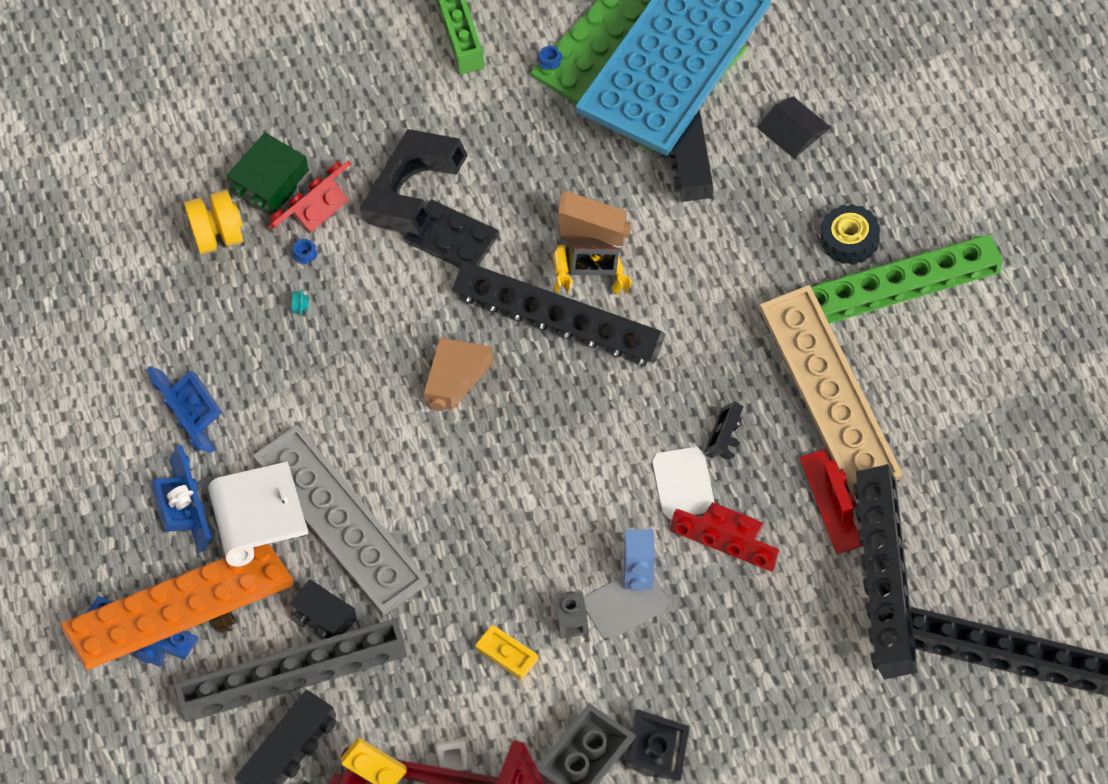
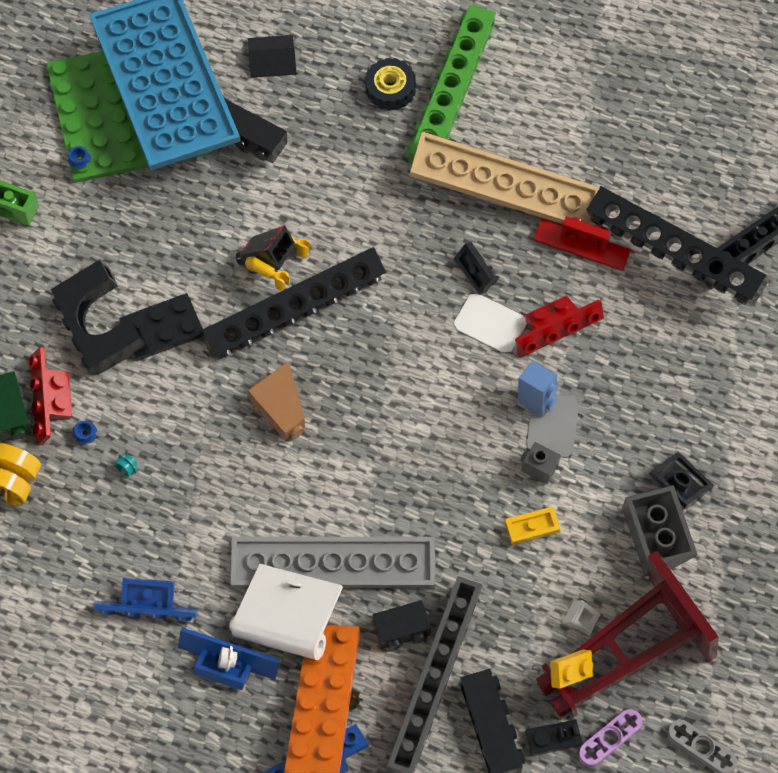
camera: 60 degrees left, 5 degrees up
(591, 218) = (235, 229): medium nougat slope -> none

